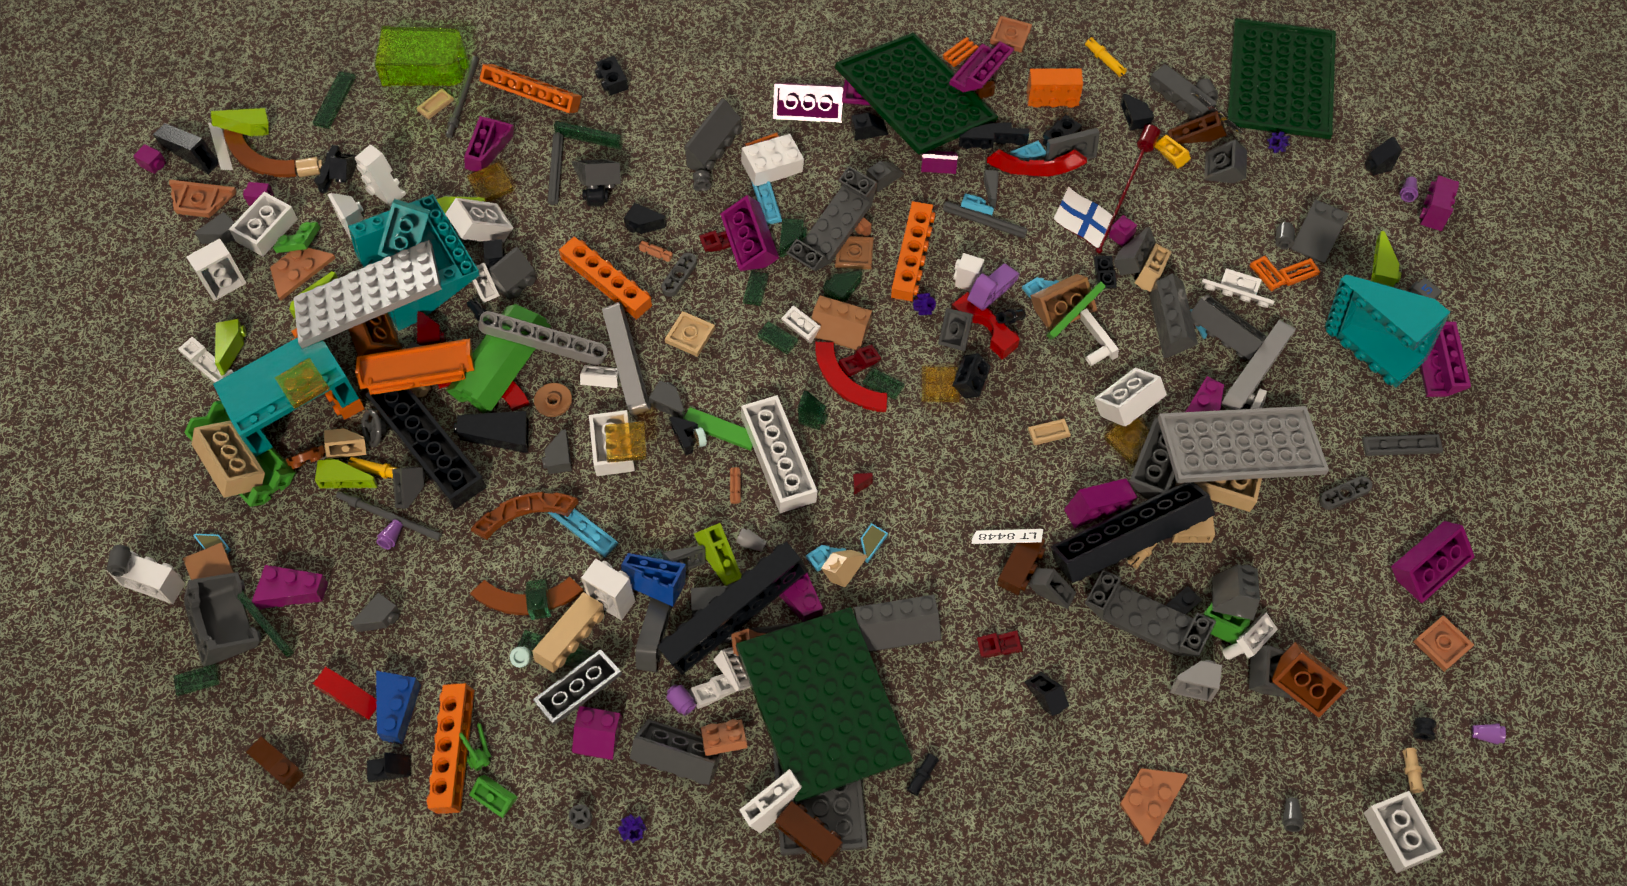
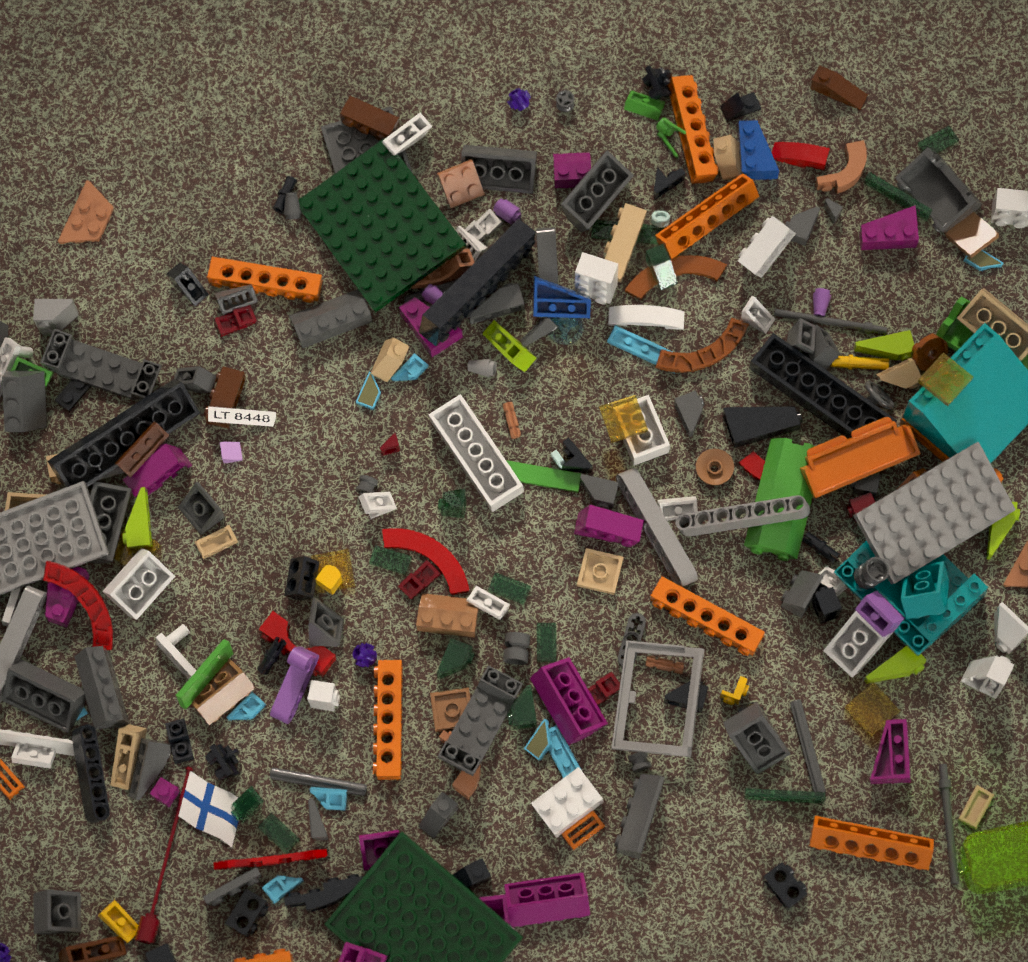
camera: 170 degrees right, 10 degrees up
(299, 661) = (850, 175): none -> nougat arch
(337, 622) = (833, 209): none -> dark grey slope
(421, 586) = (766, 246): none -> white brick
(423, 491) = (802, 336): none -> dark grey slope
(424, 707) = (727, 156): none -> tan slope
(445, 249) = (871, 573): none -> dark grey wheel
(452, 217) = (879, 613): none -> medium lavender brick
(460, 534) = (757, 315): none -> white slope
(467, 812) = (659, 80): none -> black hips
(469, 642) = (708, 215): none -> orange brick
(505, 691) = (665, 184): none -> black slope
(565, 554) = (646, 316): none -> white slope
(601, 212) = (741, 690): none -> yellow bracket
(671, 364) = (608, 526): none -> magenta wedge
(695, 227) = (627, 696): none -> light grey door
(781, 614) = (432, 293): none -> medium lavender cone
(783, 209) = (540, 741): none -> olive tile
(784, 282) = (516, 648): none -> dark grey wheel
(886, 430) = (377, 503): none -> white slope
(893, 449) = (366, 484): none -> dark grey wheel
(917, 753) = (292, 206): none -> dark grey cone
(945, 364) = (329, 579): none -> yellow piece
(948, 681) = (221, 266): none -> orange brick
(998, 662) = (228, 294): none -> dark grey slope
(1023, 511) = (231, 452): none -> lavender slope
(1025, 189) = (279, 833): none -> clear green tile
(1050, 205) = (246, 805): none -> clear green slope
(1058, 461) = (201, 509): none -> dark grey slope
(1065, 247) = (226, 758): none -> black hips
(1115, 510) = (142, 449): none -> reddish brown plate
(1125, 444) = (138, 526): none -> lime slope
(1183, 392) = (88, 597): none -> red tile
(1189, 254) = (87, 782): none -> black beam

